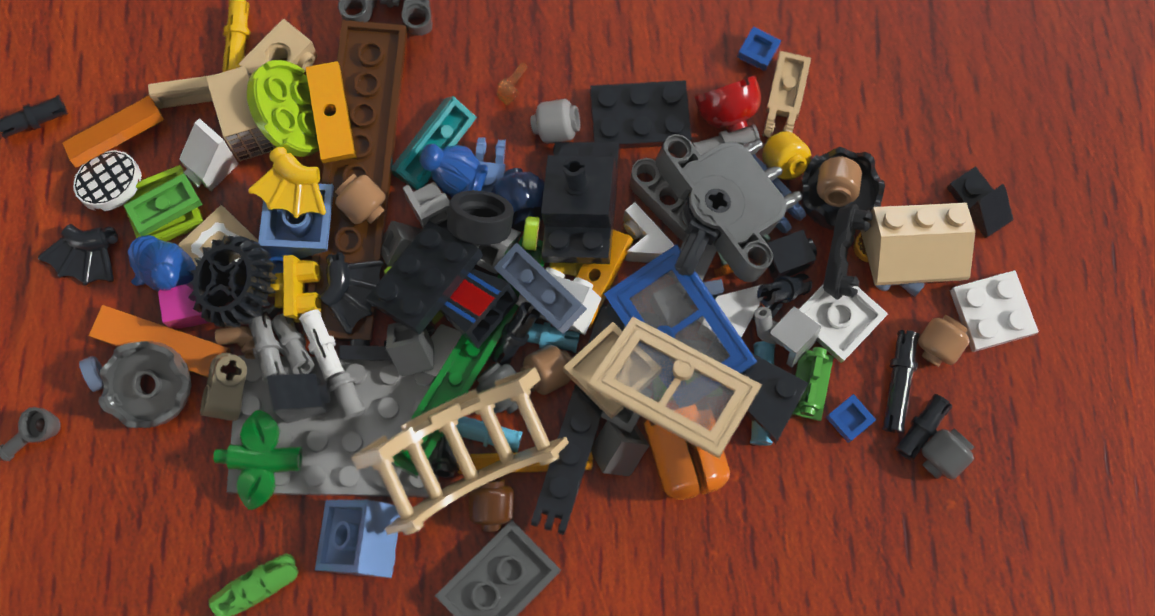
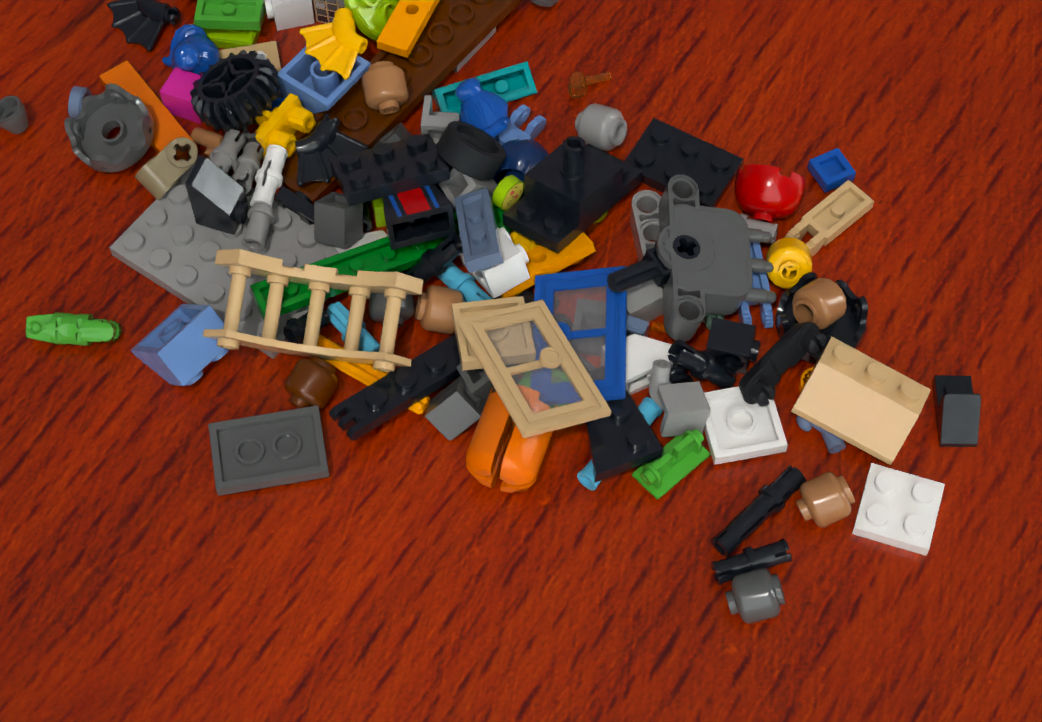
camera: 40 degrees right, 15 degrees down
(259, 459) = (150, 233): green plant -> none
(652, 239) = (610, 249): white slope -> none
(850, 418) = (686, 512): blue plate -> none

